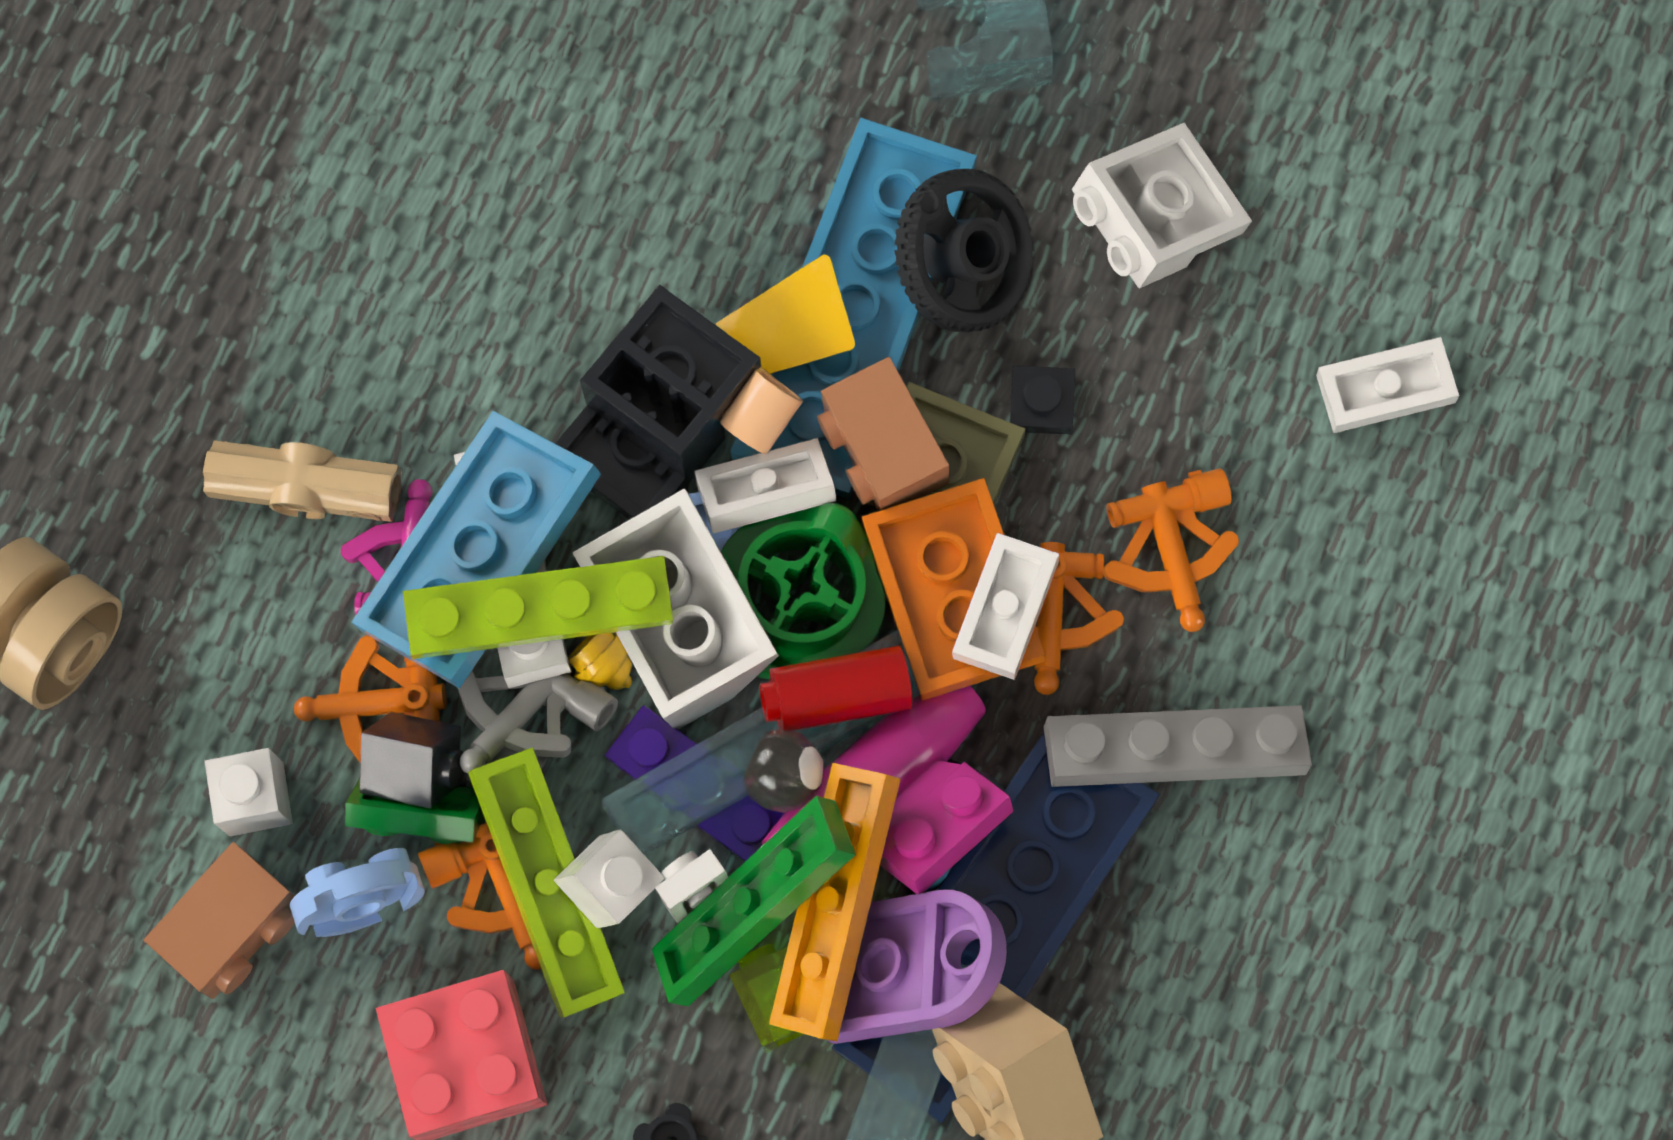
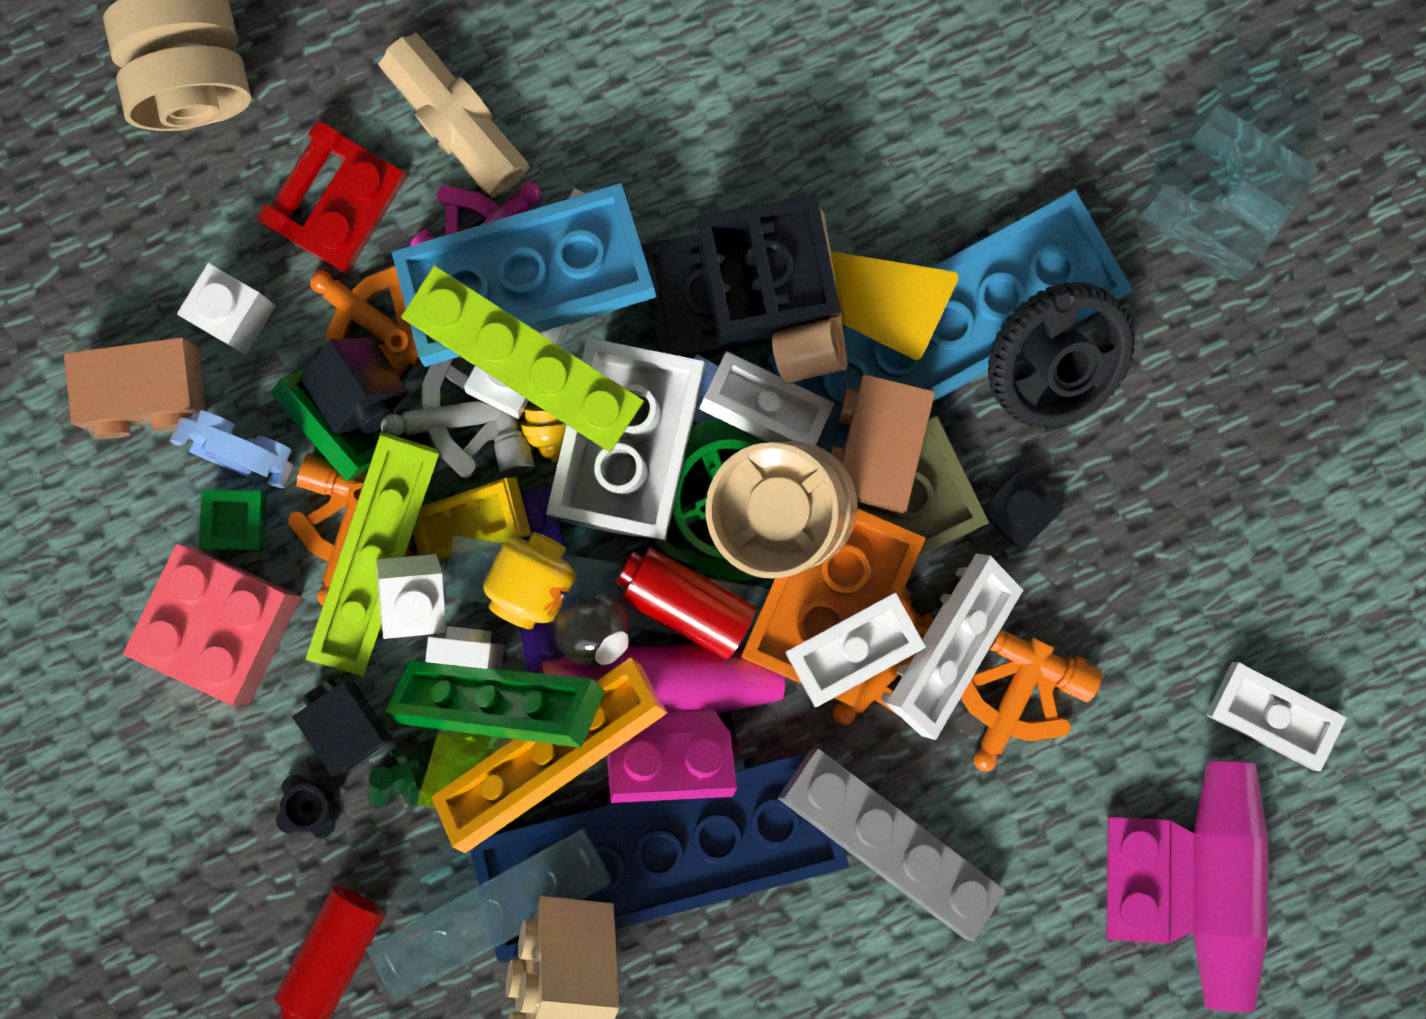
camera: 35 degrees right, 10 degrees up
(276, 629) = (347, 208): none -> red plate
(402, 961) = (232, 520): none -> green plate
(609, 764) = (484, 513): none -> yellow plate
(642, 1046) = (340, 725): none -> black brick
(696, 775) = (529, 580): none -> yellow head
(727, 1049) = (402, 778): none -> dark green plate
(847, 539) = (780, 508): none -> tan wheel
(912, 969) = (561, 850): medium lavender plate -> none
(1087, 545) = (954, 646): none -> white plate
(1158, 205) = (1231, 441): white plate -> none
(1452, 557) = (1199, 883): none -> dark pink plate

